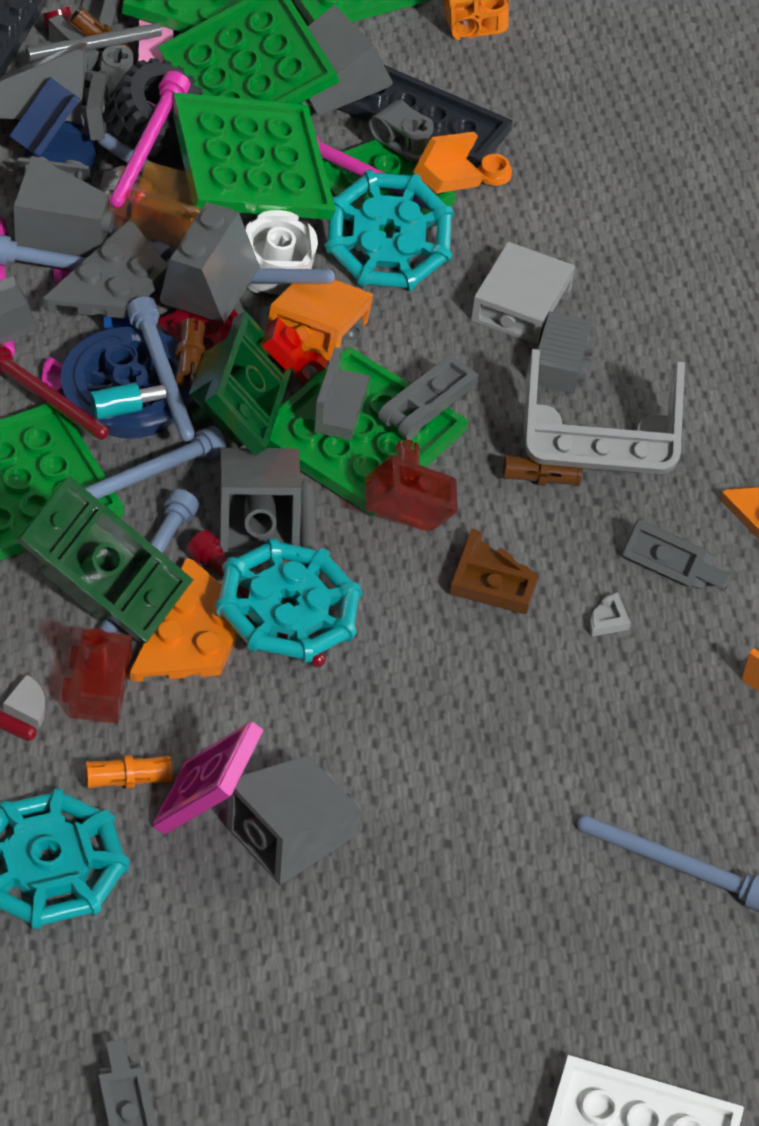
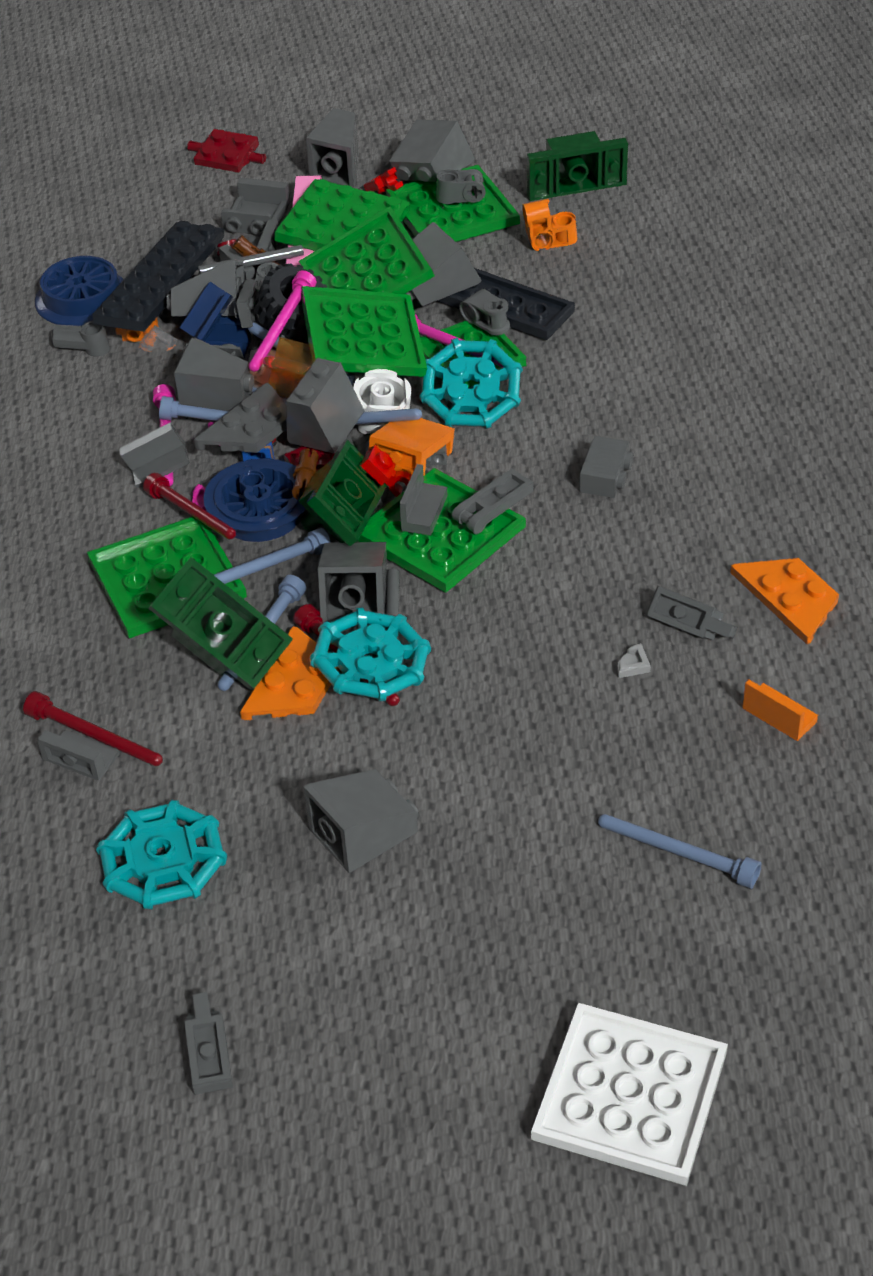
camera: 10 degrees right, 5 degrees down
(27, 702) = (156, 736): light grey tile -> none
(99, 676) = (214, 713): clear red brick -> none
(123, 399) = (248, 509): teal piece -> none
(128, 772) = (231, 787): orange pin -> none
(144, 316) = (271, 450): sand blue piece -> none
(207, 778) = (290, 786): dark pink tile -> none
(410, 491) = (473, 570): clear red brick -> none
(445, 163) = (519, 334): orange panel -> none
(493, 576) = (539, 634): reddish brown wing -> none
(496, 170) = (559, 339): orange plate -> none
(521, 292) = (573, 422): light grey panel -> none
(526, 469) = (584, 554): reddish brown pin -> none
(650, 449) = (599, 531): light grey windscreen -> none

